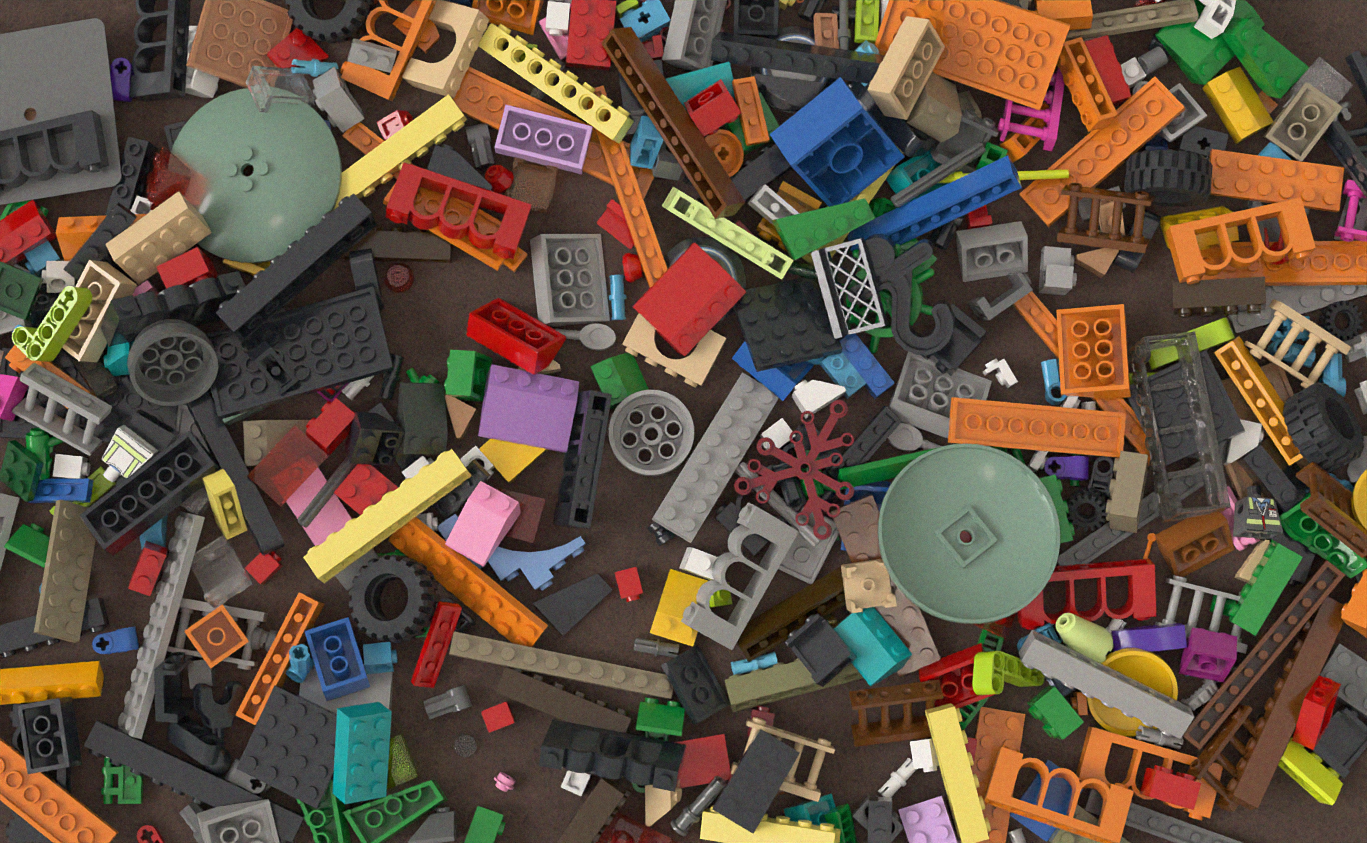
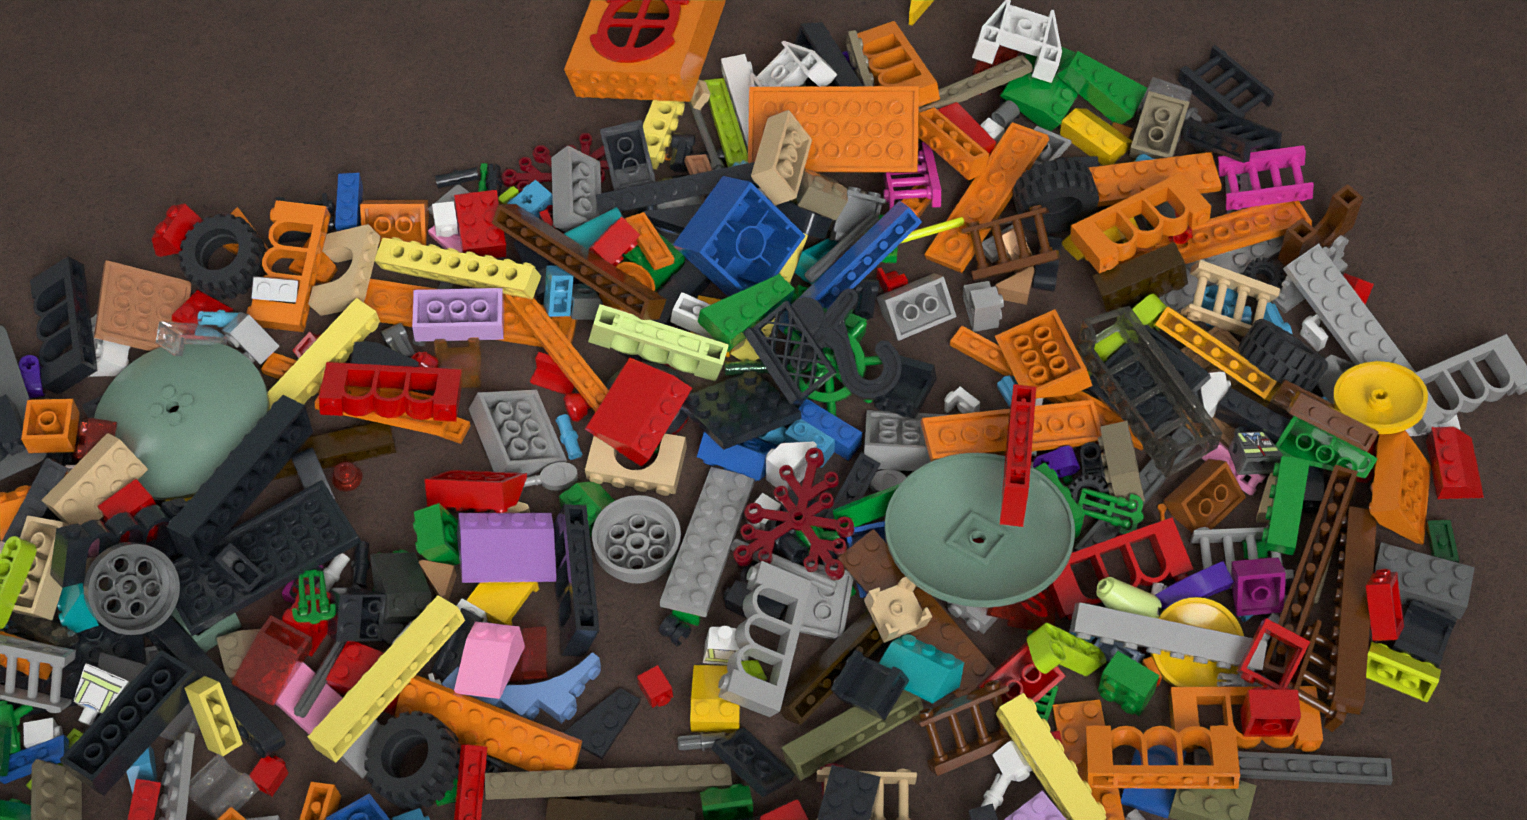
camera: 10 degrees left, 25 degrees down
(128, 157) = (50, 426): none -> orange brick
(334, 440) = (325, 611): none -> green piece
(762, 661) = (806, 727): medium azure pin -> none
(986, 311) = (927, 349): dark grey panel -> none
(1029, 475) = (1018, 455): none -> red fence
(1122, 548) = (1136, 516): none -> green piece
(1220, 737) = (1283, 635): none -> red window

